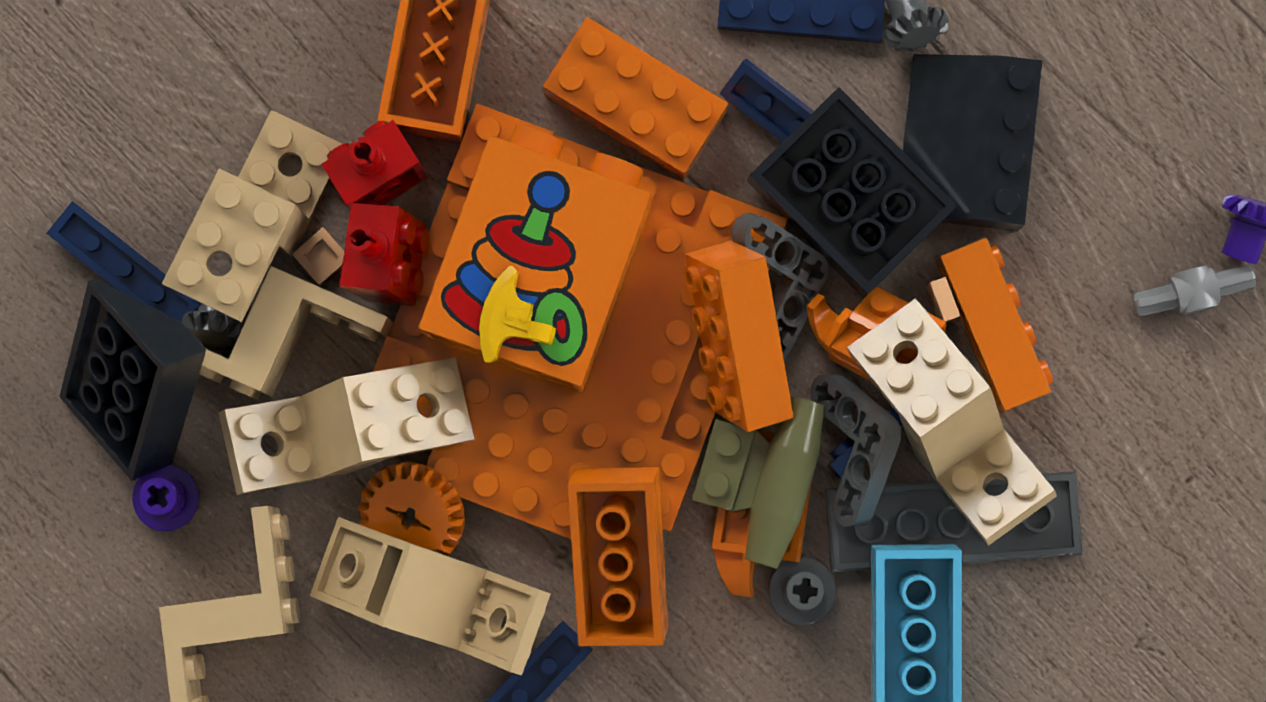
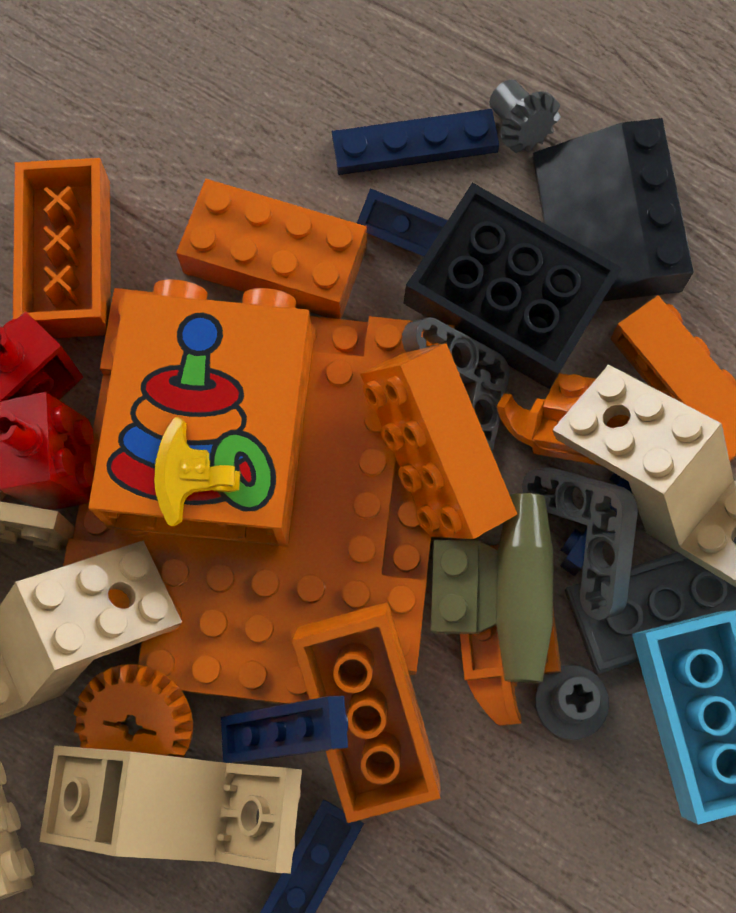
camera: 15 degrees left, 10 degrees down
(541, 556) = (285, 730): none -> dark blue plate
(942, 300) = (629, 362): light nougat tile -> none

